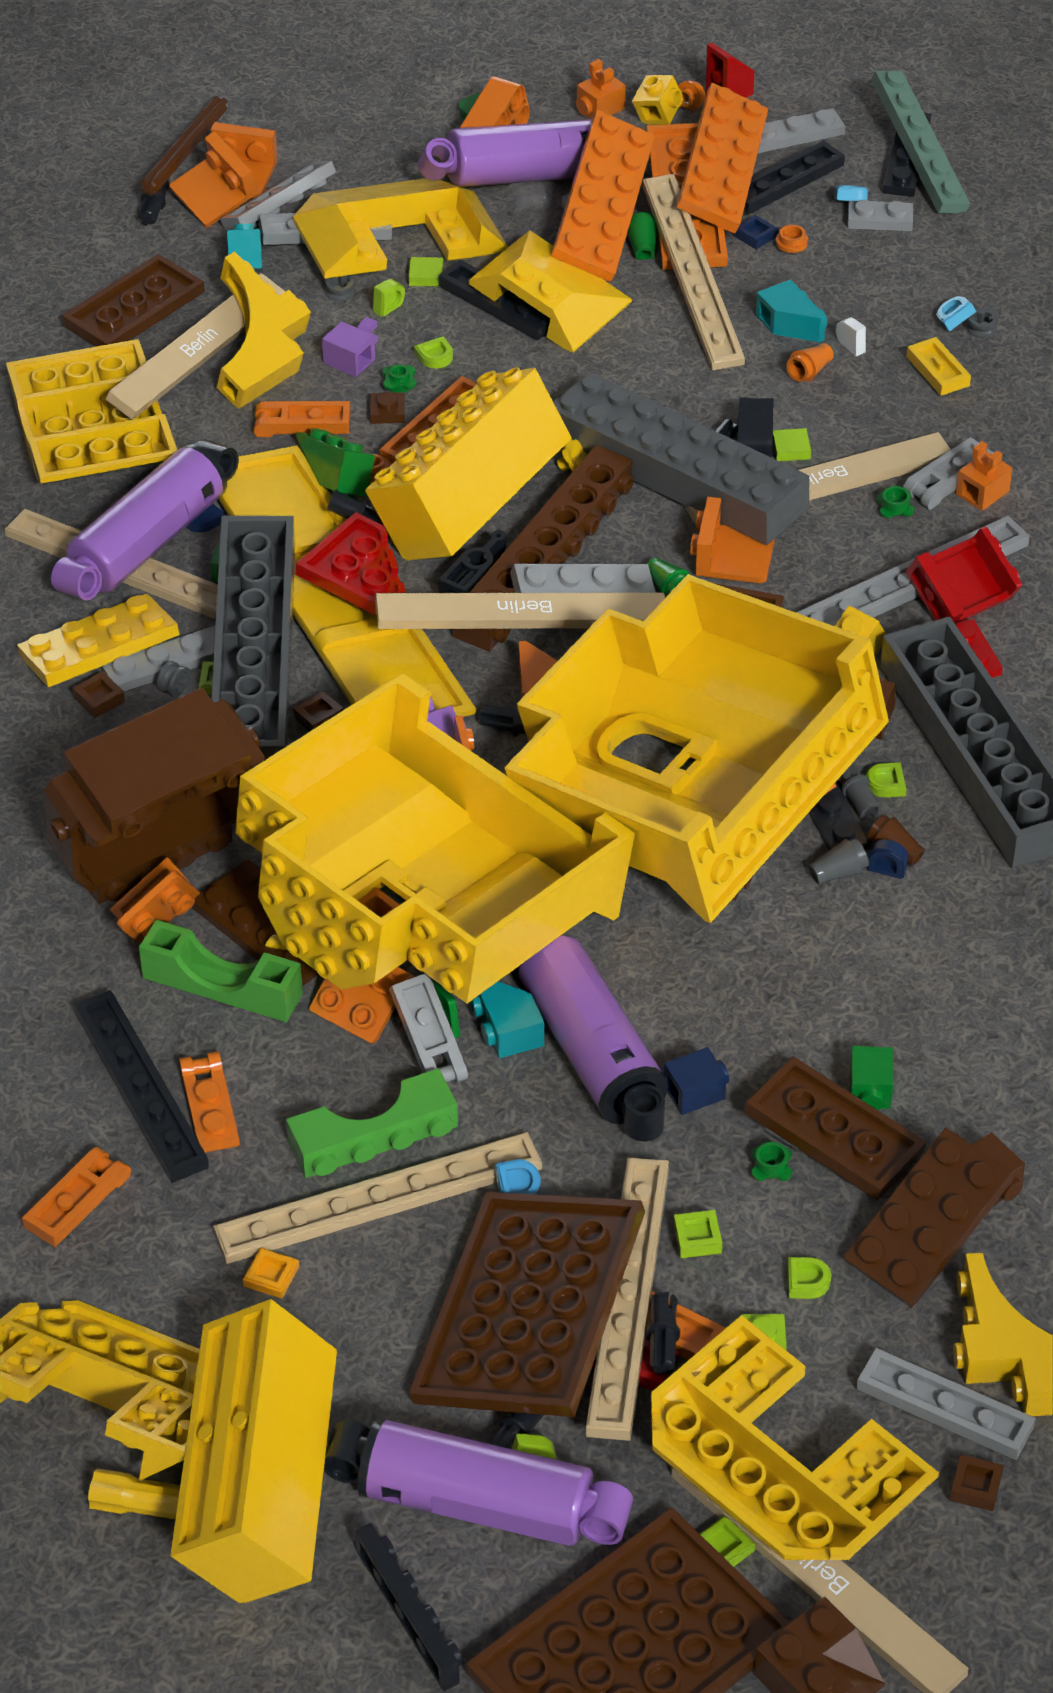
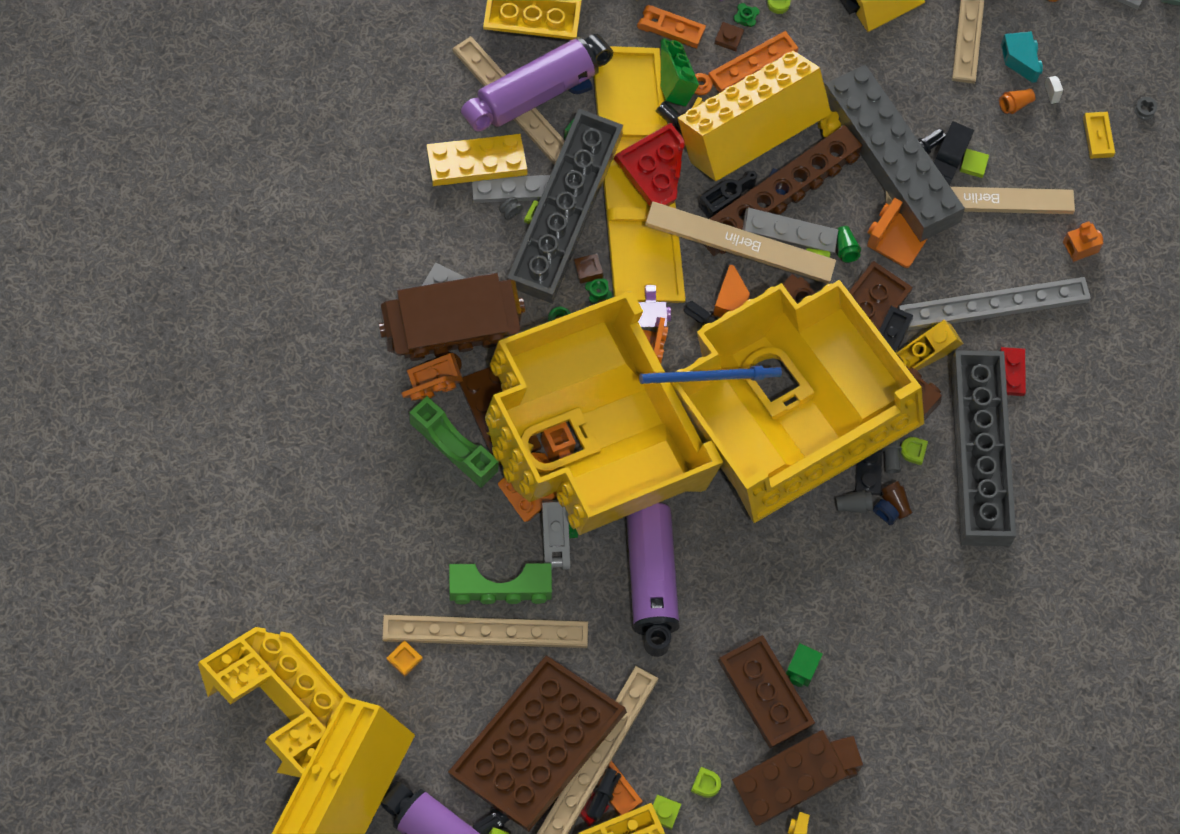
camera: 15 degrees right, 20 degrees up
(75, 1196) = (314, 564): orange plate -> none
(98, 694) = (461, 202): reddish brown plate -> none
(125, 1493) = (265, 771): yellow axle -> none
(141, 1086) = (379, 502): black plate -> none
(209, 1102) = (414, 528): orange plate -> none
(509, 1019) = (609, 543): teal slope -> none
(517, 1177) = (568, 653): dark azure tile -> none
(621, 733) = (755, 373): none -> blue bar
(696, 1080) = (700, 626): dark blue brick -> none
(697, 1234) = (655, 731): lime plate -> none
(774, 1153) = (719, 691): green plate -> none
(895, 502) = (1019, 230): green plate -> none
(941, 475) = (1063, 223): light grey plate -> none
(955, 312) = (1130, 94): medium azure tile -> none
(965, 578) = (1031, 318): red panel -> none

